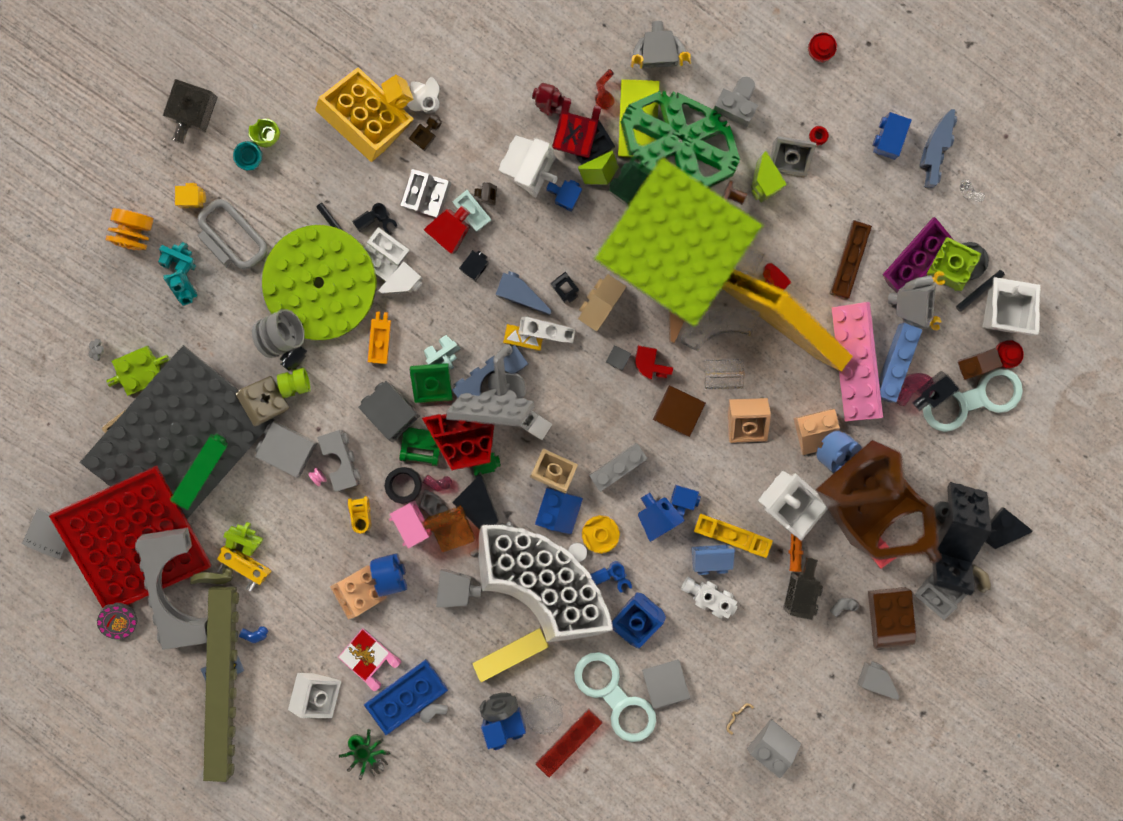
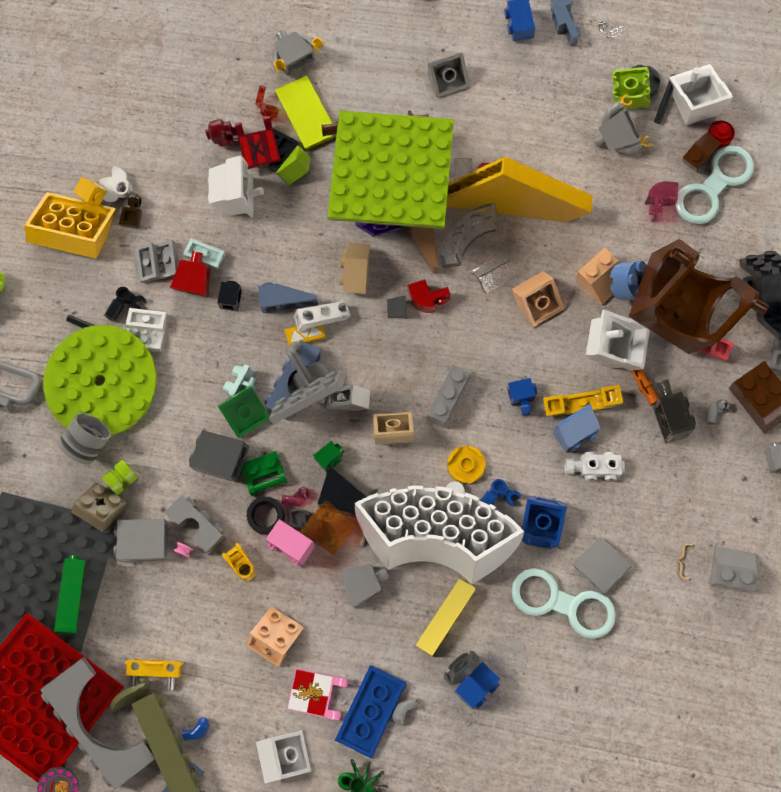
camera: 30 degrees left, 15 degrees down
(243, 536) = (132, 645): lime hips -> none
(293, 358) = (108, 456): black brick -> none
(379, 339) = (178, 401): light orange hinge -> none
(388, 575) = (294, 600): blue brick -> none
(402, 281) = (173, 341): white slope -> none
(461, 441) = (297, 440): red wedge -> none
(487, 193) = (209, 233): dark brown tile -> none
(558, 511) = (417, 462): blue slope -> none
(559, 281) = (320, 281): black window -> none
(566, 195) = (278, 199): blue brick -> none
(568, 743) = (545, 669): clear red plate -> none
(628, 183) = (323, 162): clear green brick -> none
(658, 516) = (508, 418): blue torso -> none
(675, 128) = (337, 98): green plate -> none
(679, 411) = (474, 323): reddish brown slope -> none
(737, 104) = (380, 60): light grey brick -> none
(766, 179) = (438, 98): lime slope -> none
(821, 130) = (462, 46): red plate -> none
(850, 259) = (545, 130): reddish brown tile -> none
(860, 376) = (609, 211): bright pink plate -> none
(898, 361) = (634, 187): medium blue brick -> none
(917, 256) = (597, 97): magenta slope -> none
(941, 385) = (680, 181): black torso -> none

